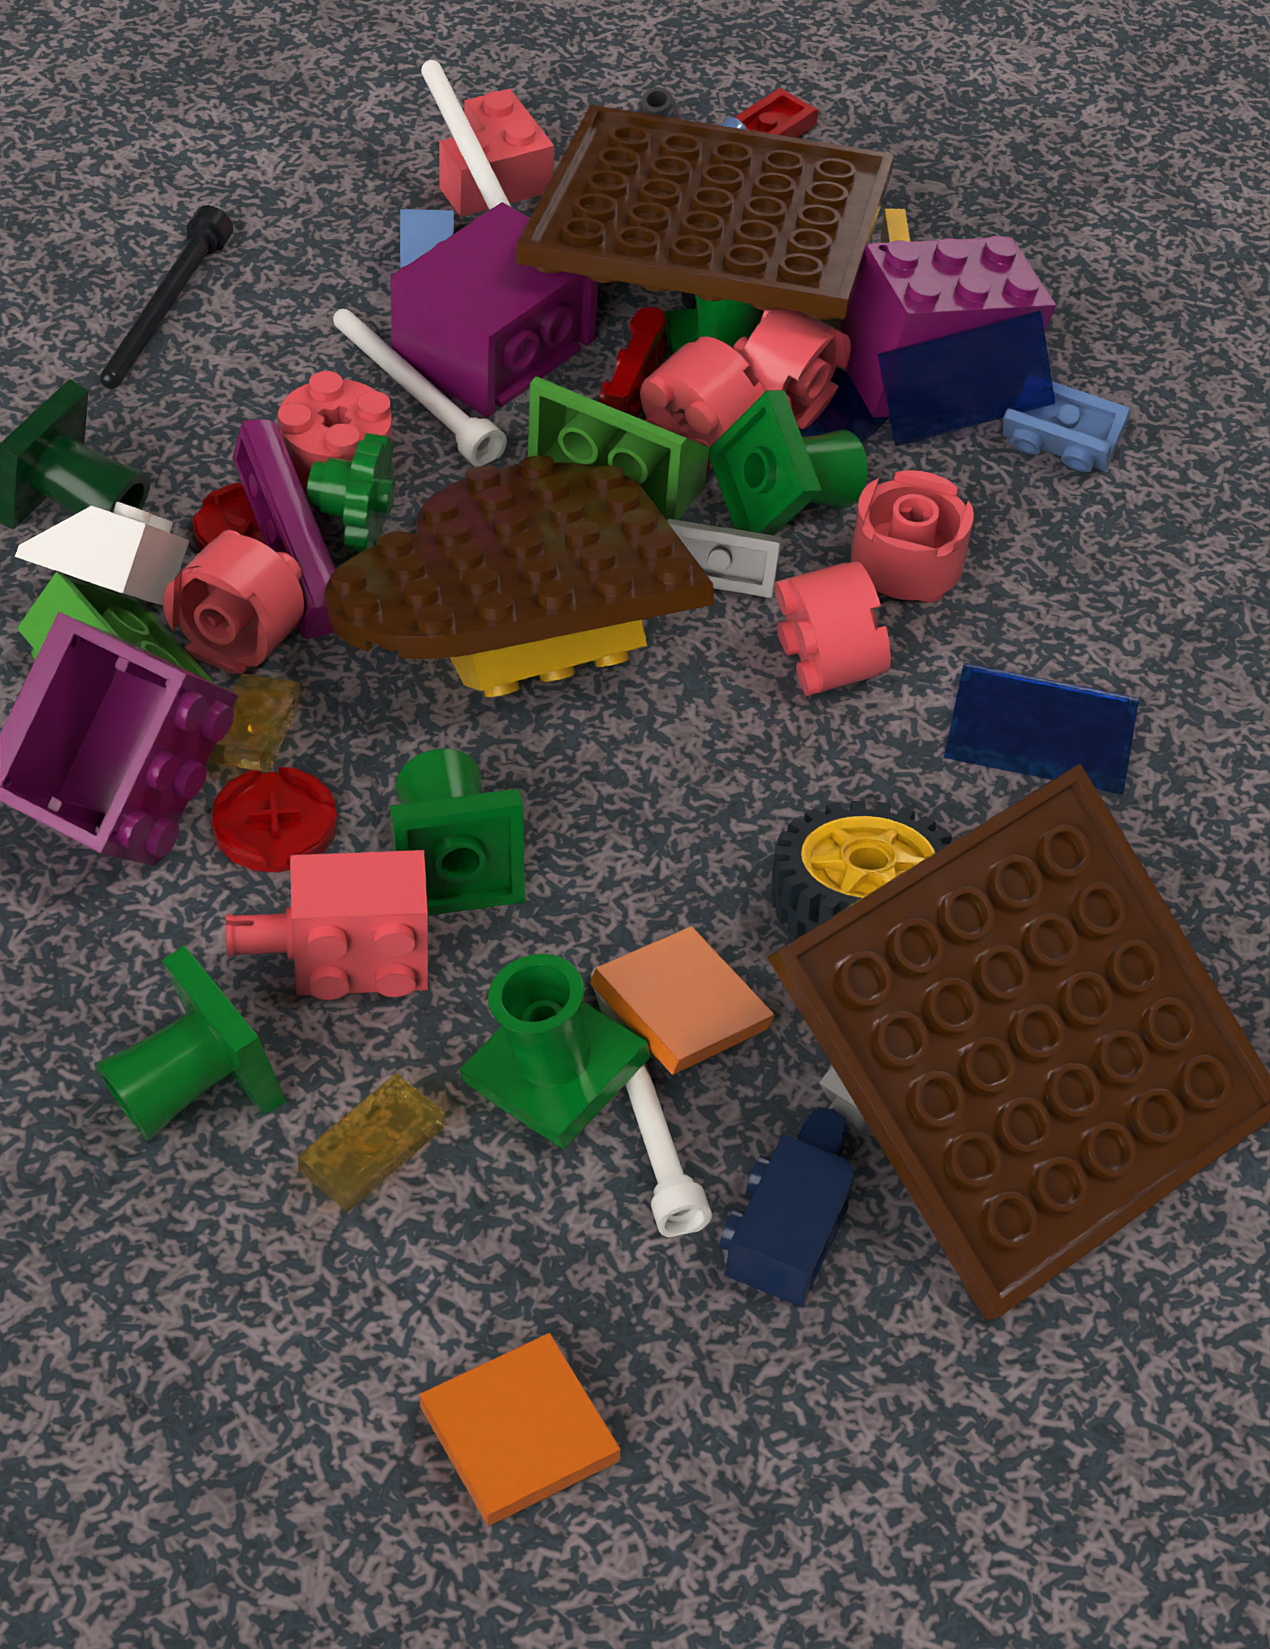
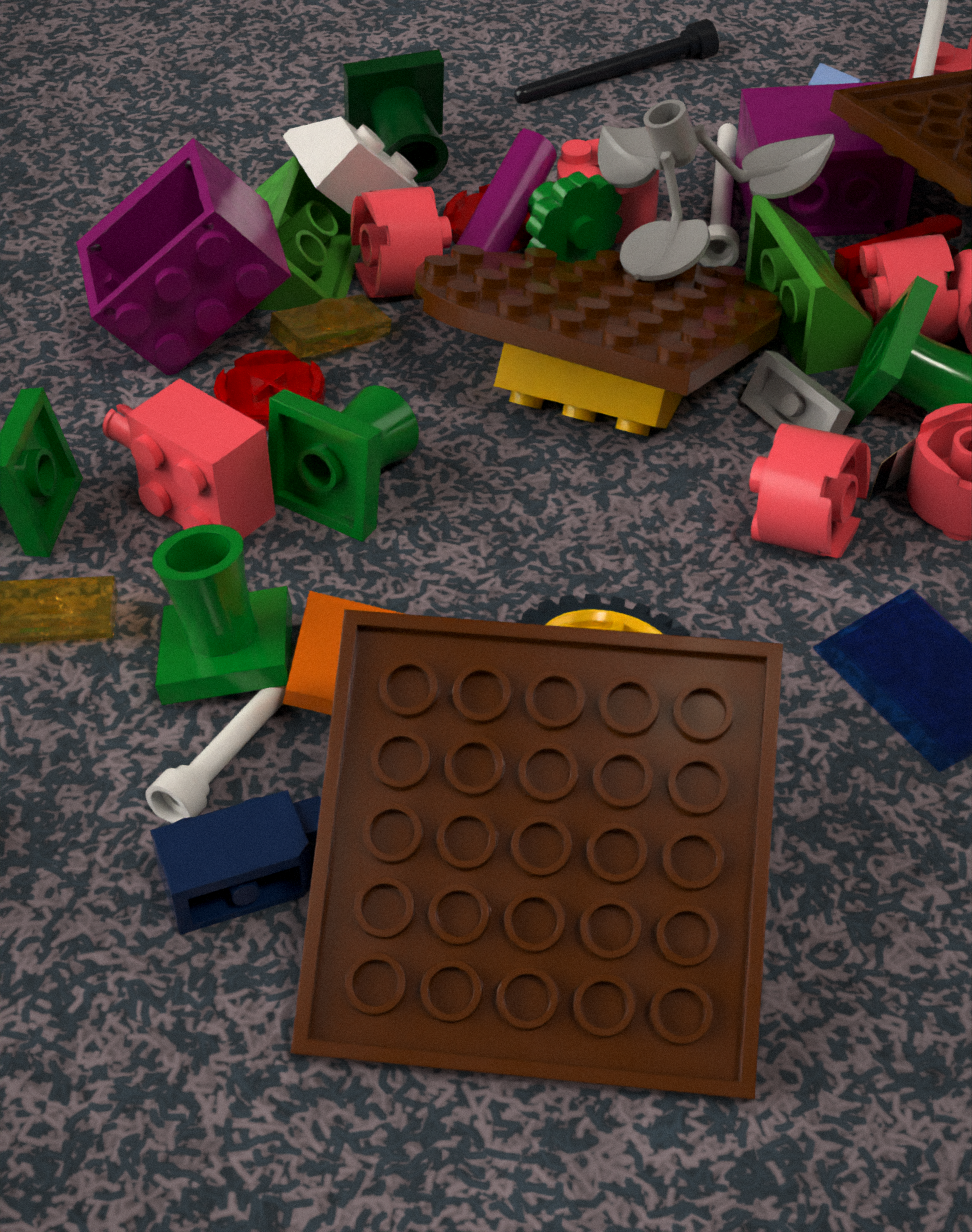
camera: 50 degrees right, 5 degrees down
(380, 392) = (669, 142): none -> light grey plant
(847, 538) = (893, 468): none -> sticker

